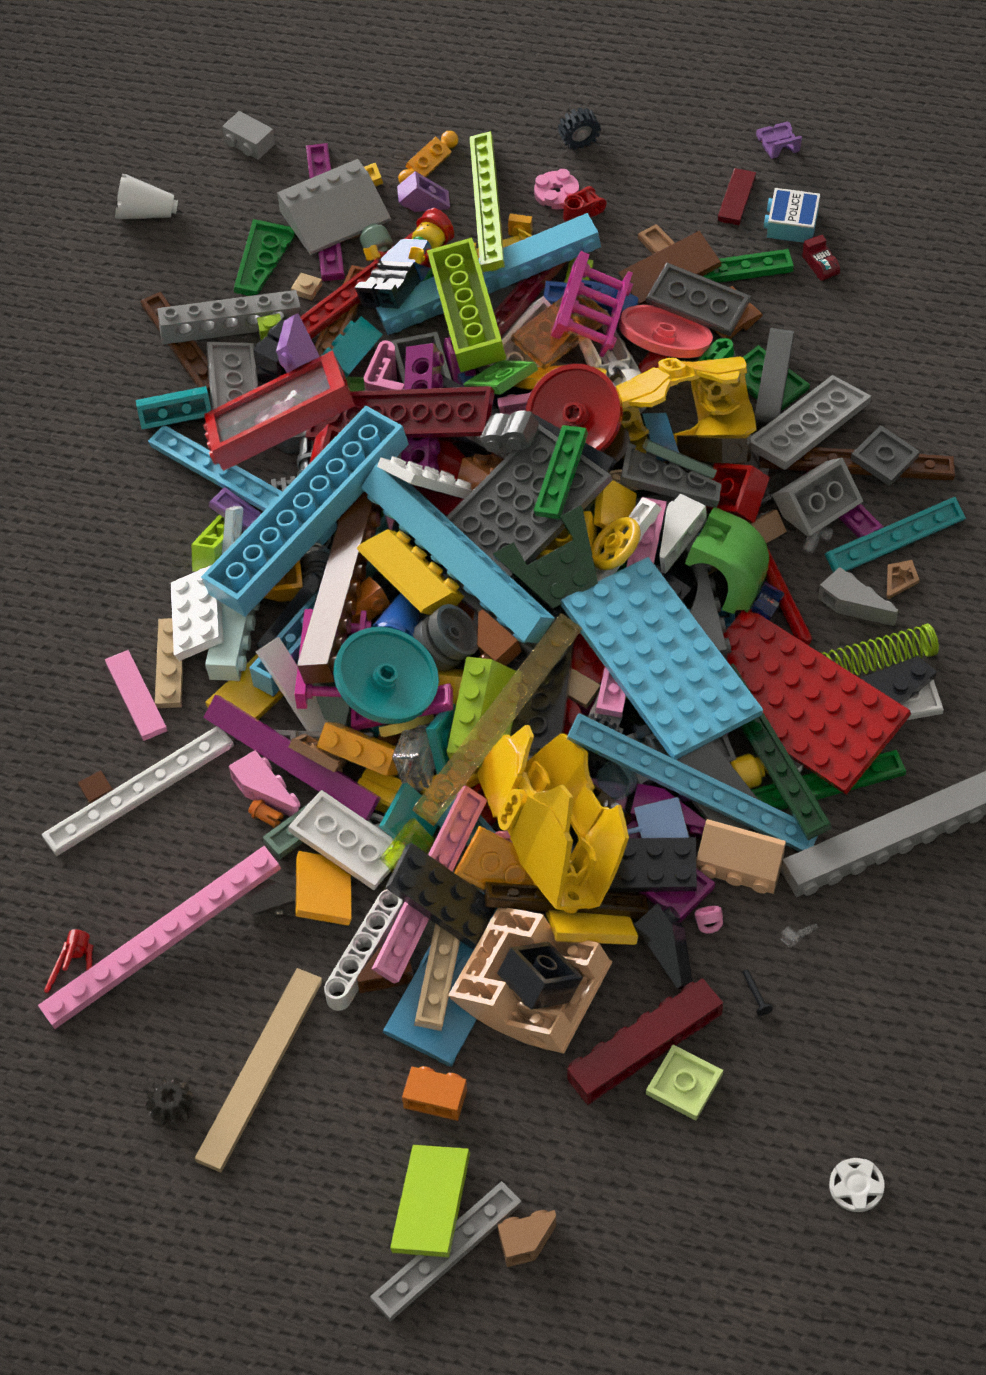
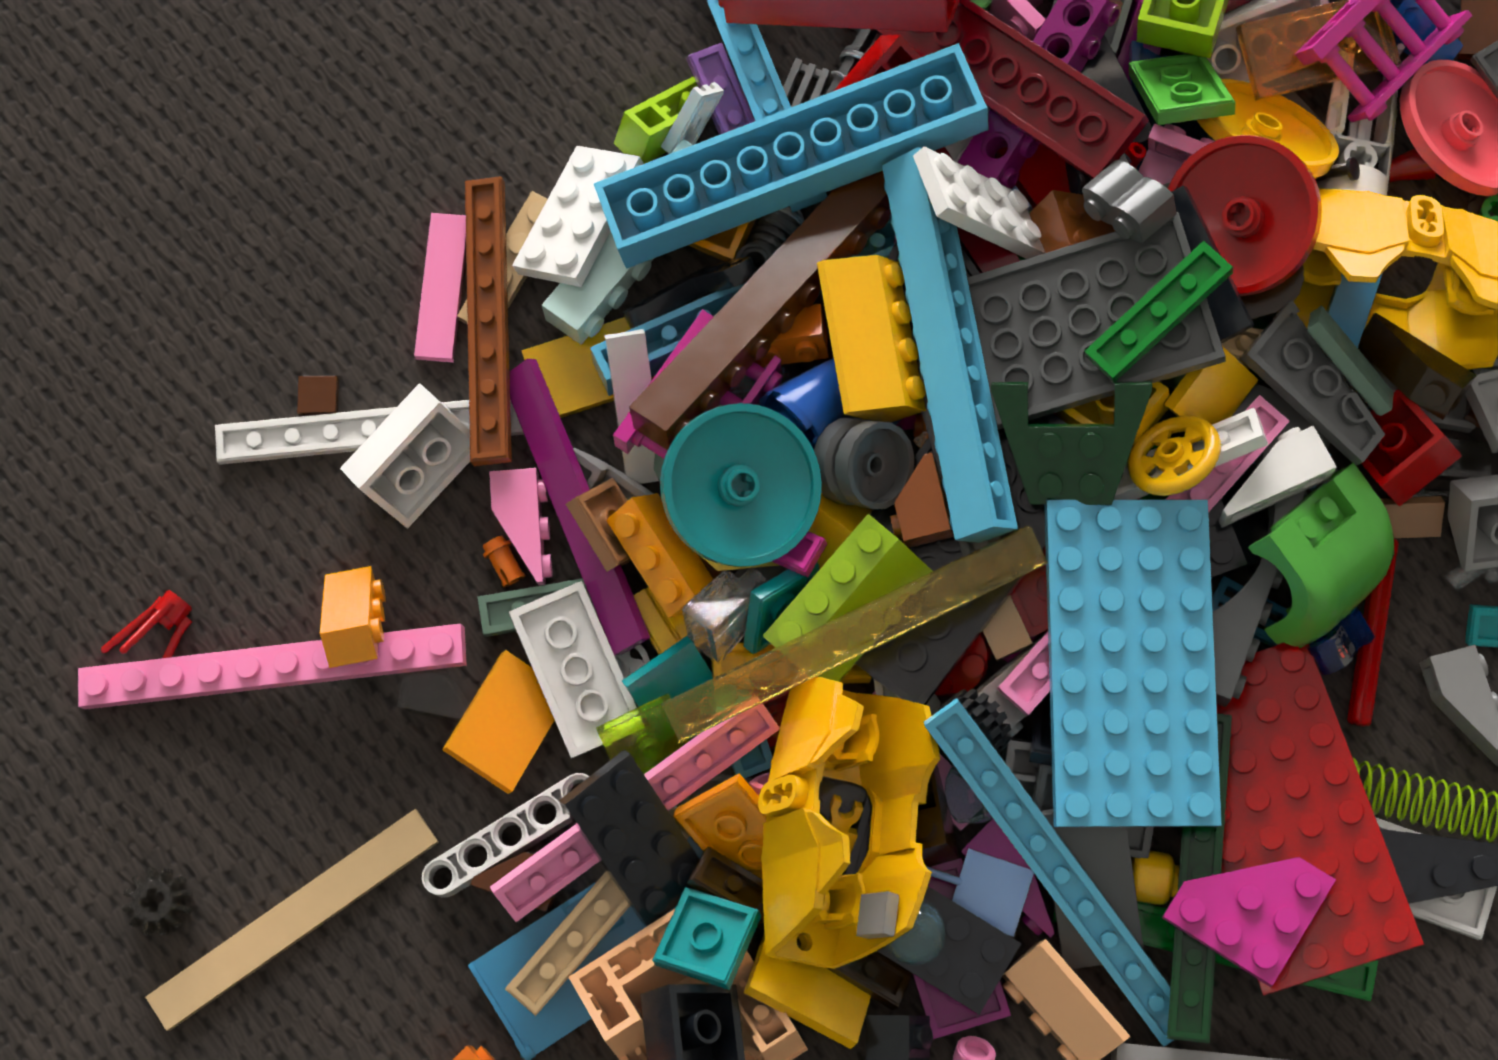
camera: 30 degrees right, 20 degrees up
(176, 783) = (411, 456): none -> white slope
(177, 692) = (487, 322): none -> dark orange tile
(196, 876) = (352, 616): none -> light orange brick
(516, 922) = (707, 938): none -> teal tile
(605, 847) = (877, 915): none -> light grey tile
(636, 861) = (923, 940): none -> clear light blue hair
(809, 747) = (1252, 913): none -> dark pink plate

